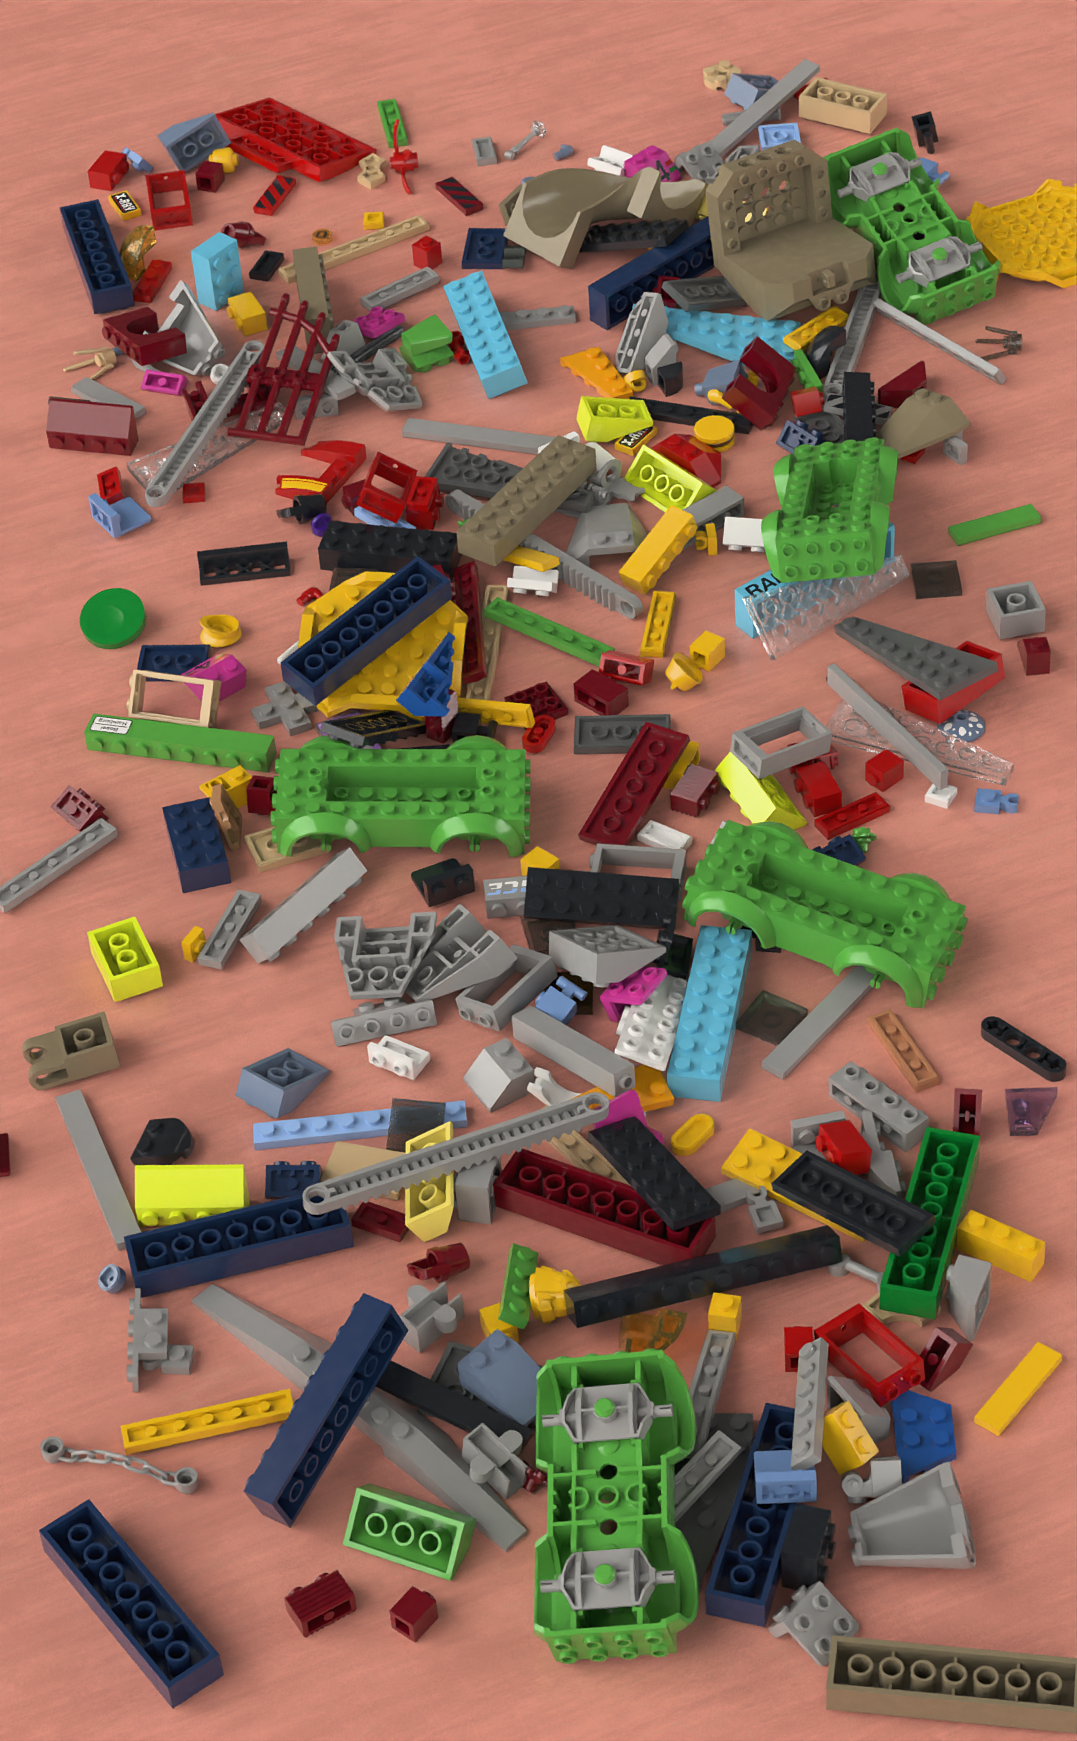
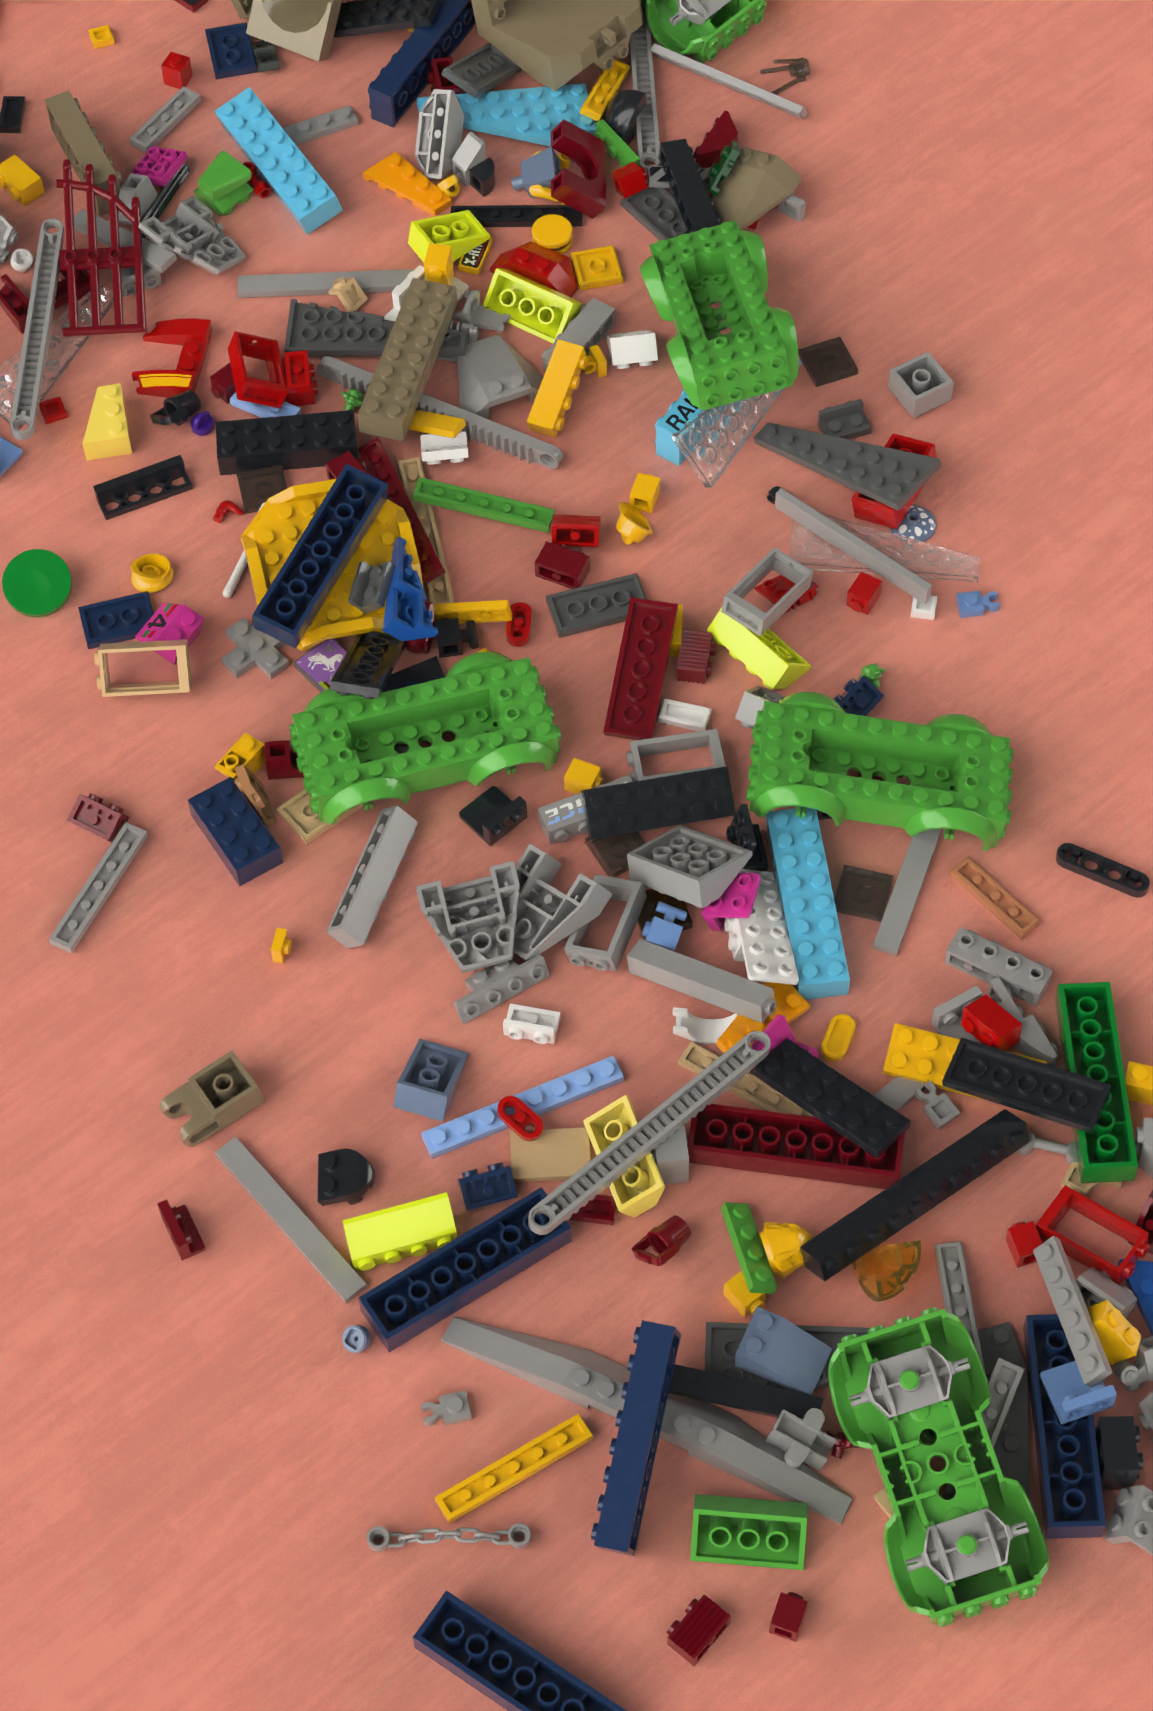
camera: 20 degrees left, 15 degrees up
(125, 959) = (221, 981): neon yellow brick -> none
(149, 1336) = (421, 1394): light grey bracket -> none
(180, 742) = (167, 715): bright green brick -> none
(229, 929) = (307, 919): light grey plate -> none
(234, 510) = (107, 426): none -> light yellow wedge
(322, 237) = (55, 67): clear yellow tile -> none
(348, 1130) = (520, 1119): none -> red plate
(364, 245) = (102, 70): tan tile -> none
(403, 666) = (371, 586): none -> dark grey bracket
(412, 1119) = (579, 1096): clear smoke tile -> none
(430, 1315) = (679, 1299): light grey piece -> none
(499, 1075) = (636, 1021): light grey slope -> none
(502, 446) = (348, 292): none -> tan bracket
(542, 701) = (501, 584): dark red tile -> none
(590, 431) = (439, 264): none -> yellow brick
(658, 624) = (582, 470): yellow tile -> none
(725, 1313) = (946, 1226): yellow brick -> none
(745, 468) = (596, 268): none -> yellow tile
(797, 434) = (640, 226): dark blue bracket -> none
(818, 789) = (810, 628): red brick -> none
(852, 815) = (850, 649): red tile -> none
(903, 392) = (722, 168): none -> dark green wing
(930, 625) = (844, 420): none -> dark grey bracket
(967, 1111) = (1082, 958): dark red slope -> none
(994, 524) = (859, 286): bright green tile -> none
(1028, 1109) = (1131, 935): wing -> none
(1035, 655) = (954, 429): dark red slope -> none

